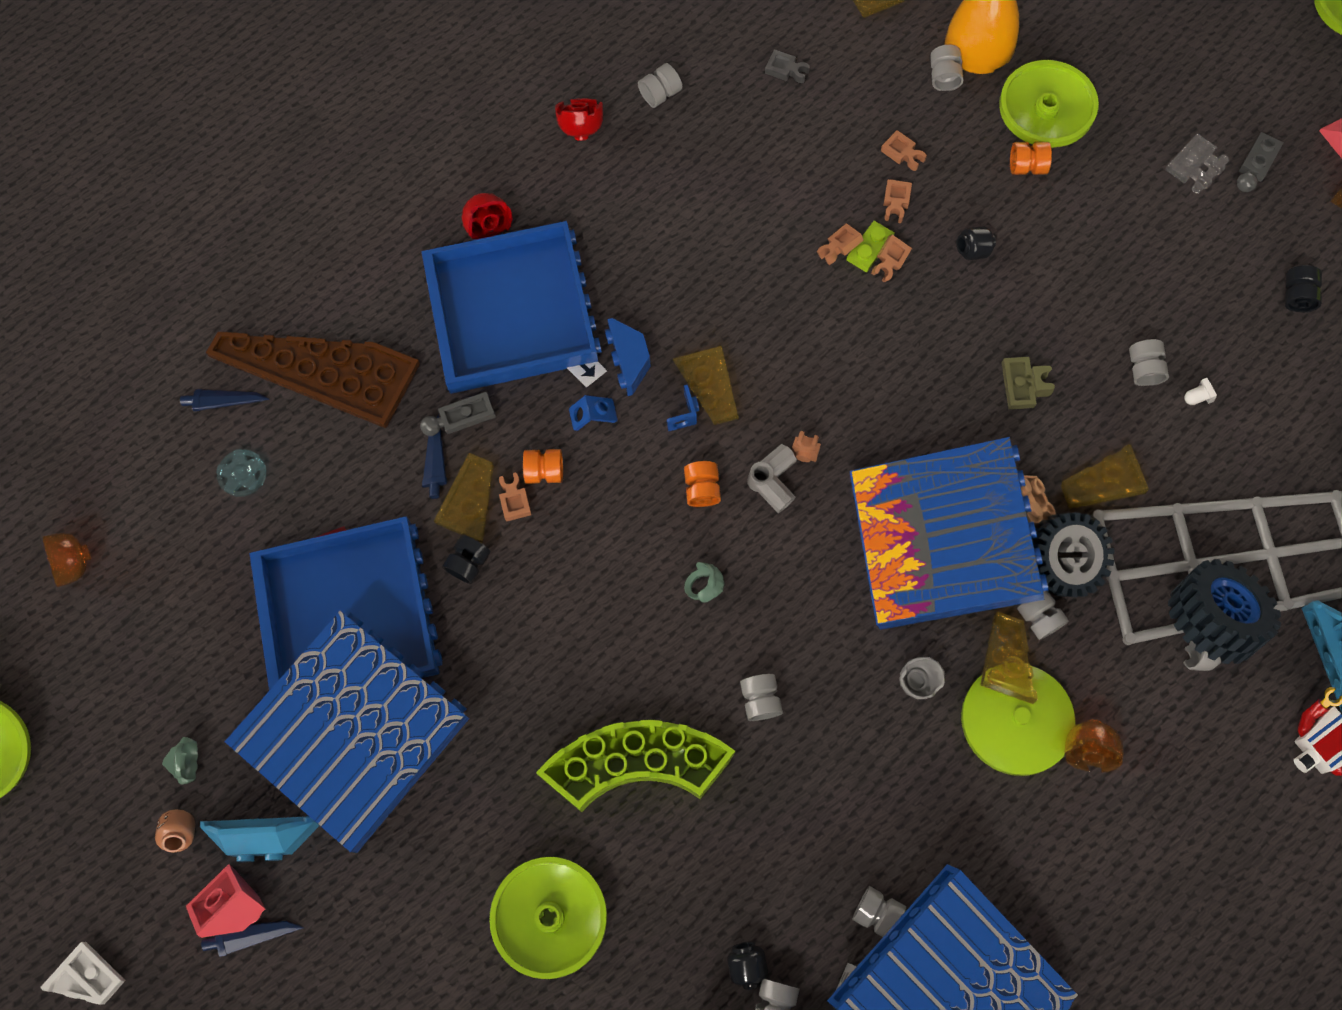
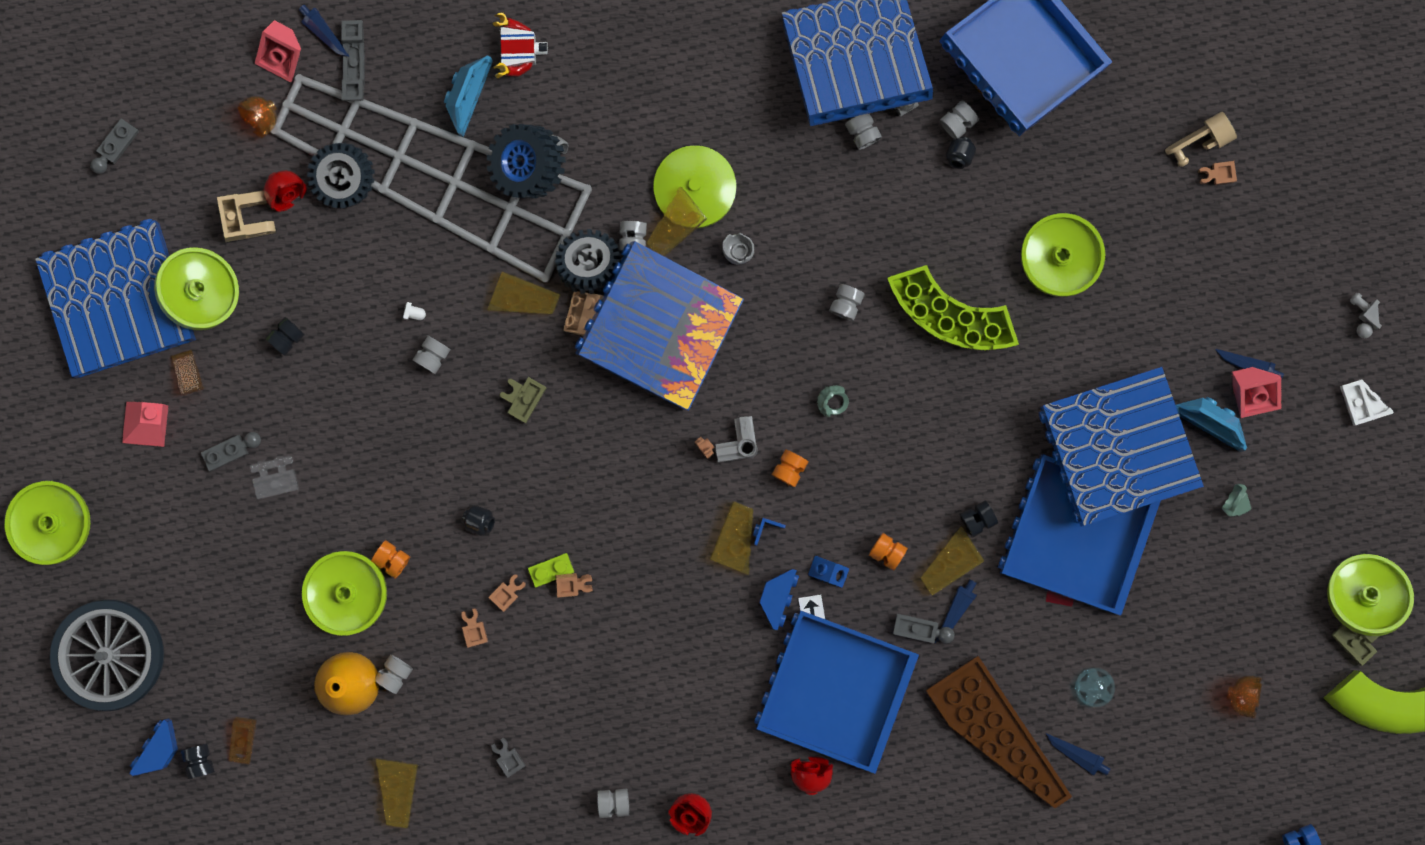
camera: 150 degrees left, 15 degrees up
(175, 830) = (1263, 457): nougat head -> none
(515, 500) = (921, 540): nougat plate -> none
(892, 255) = (542, 551): nougat plate -> none
(1094, 745) = (663, 140): clear orange cylinder -> none

